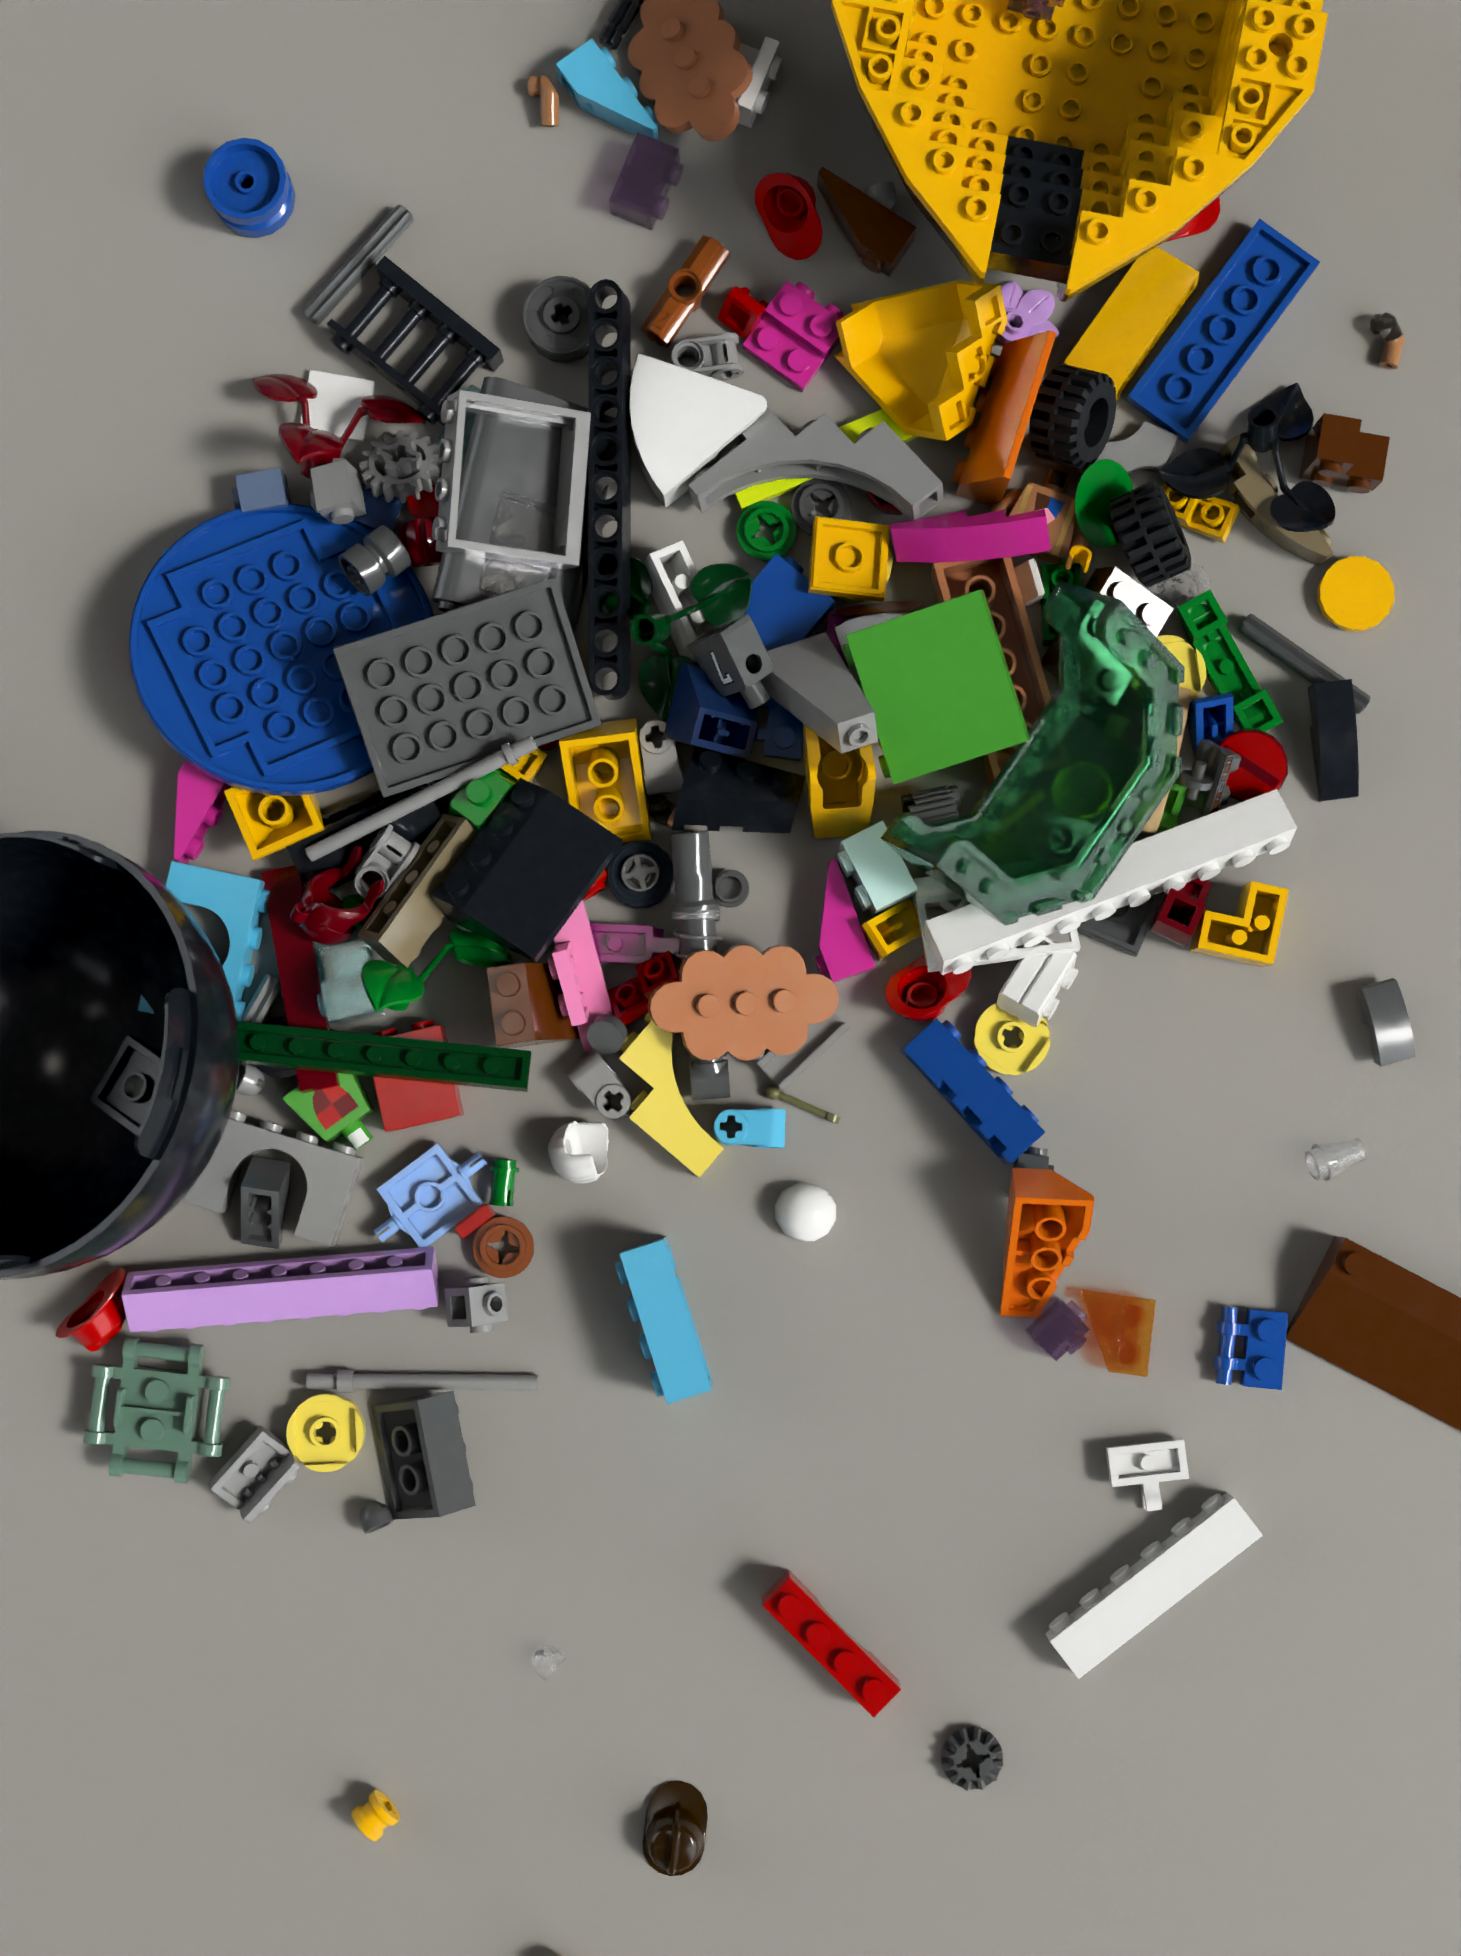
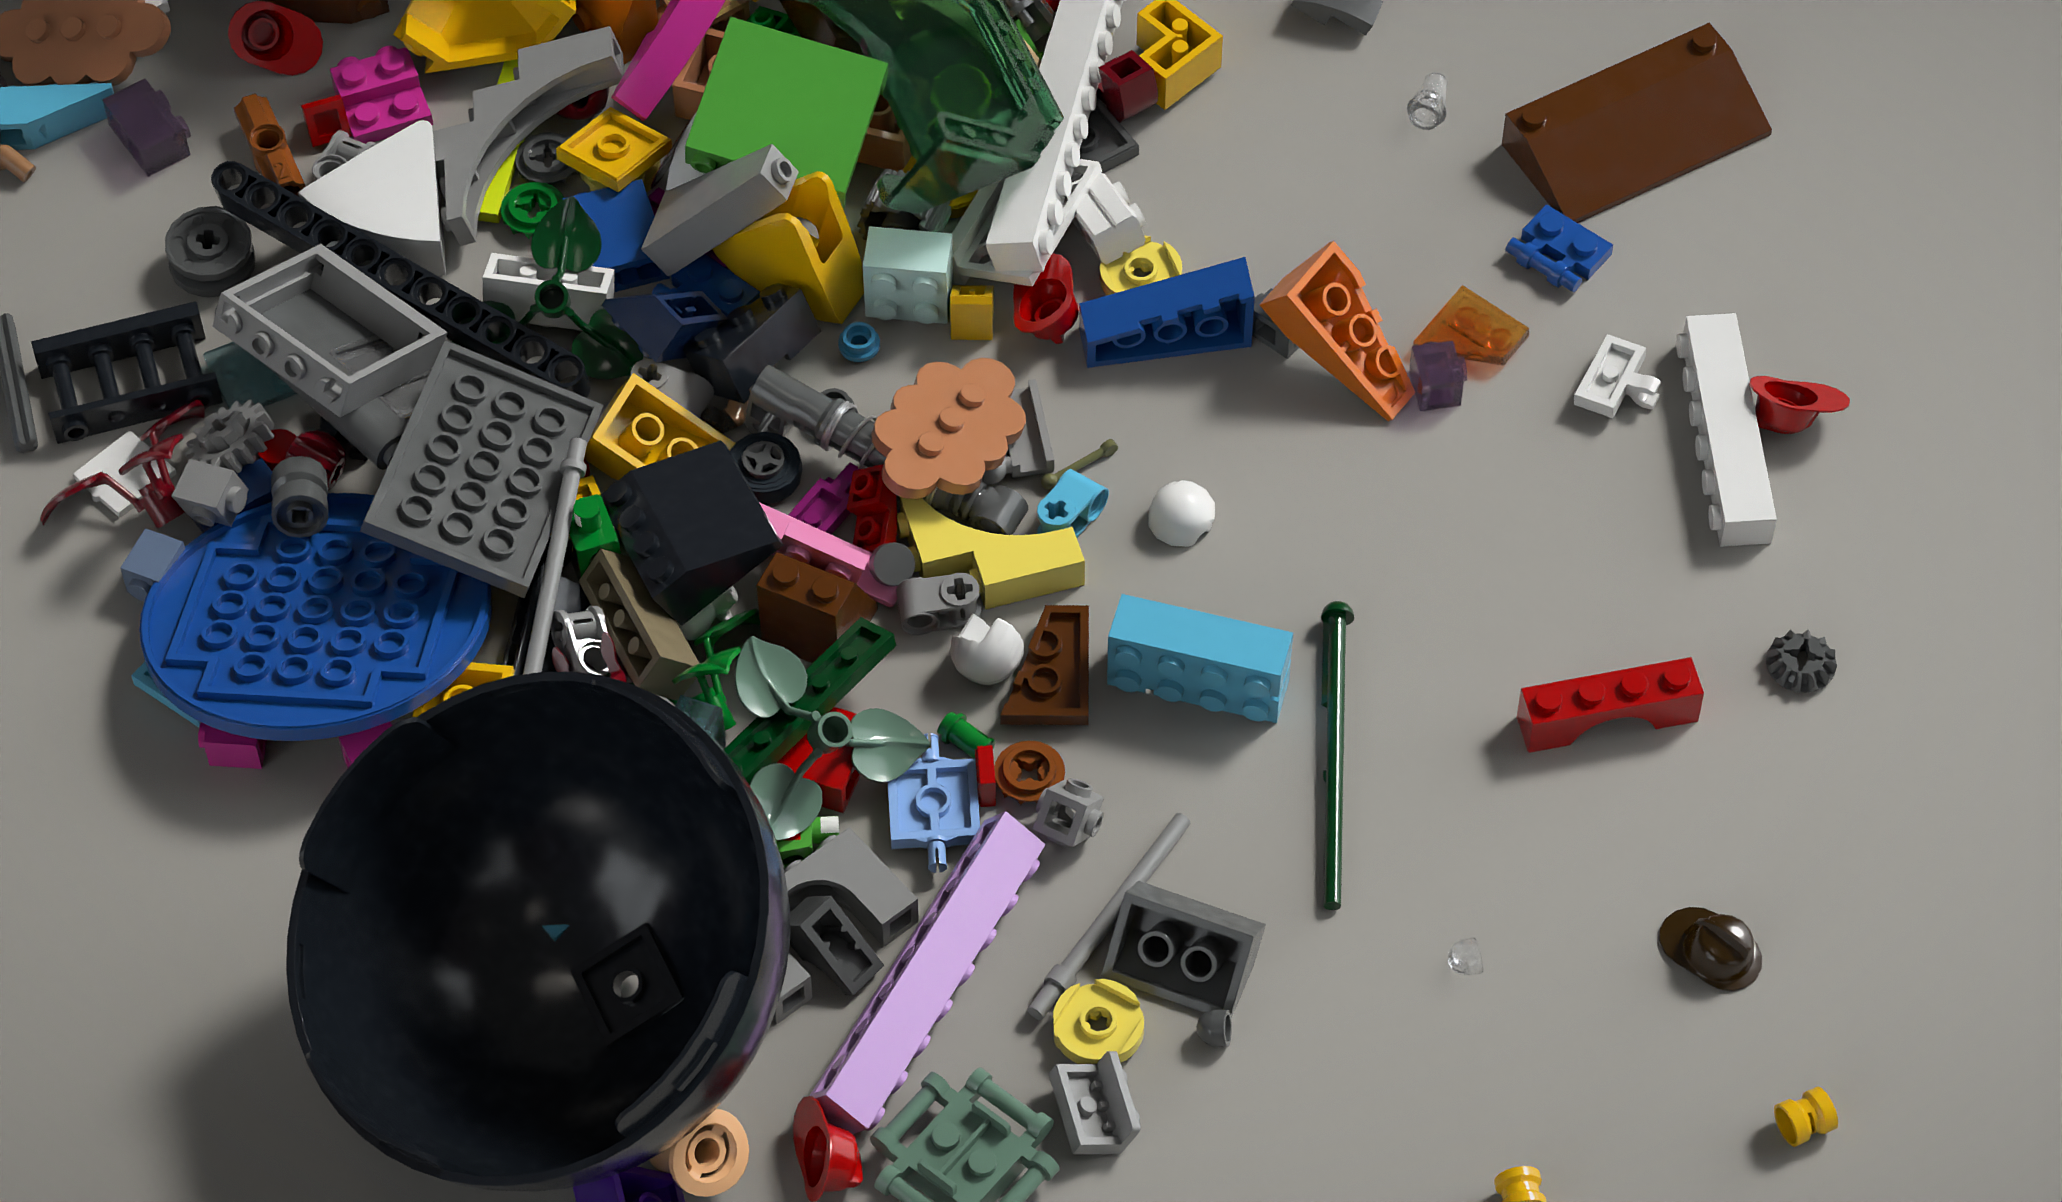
camera: 60 degrees left, 30 degrees down
(338, 1102) = (882, 741): none -> sand green plant
(600, 1210) = (1055, 672): none -> reddish brown wing
(715, 1426) = (1335, 618): none -> dark green bar
(734, 660) = (633, 254): dark grey torso -> none
(804, 853) = (859, 334): none -> dark azure plate
(841, 938) = (934, 335): dark pink slope -> none
(1212, 1628) = (1793, 405): none -> red piece

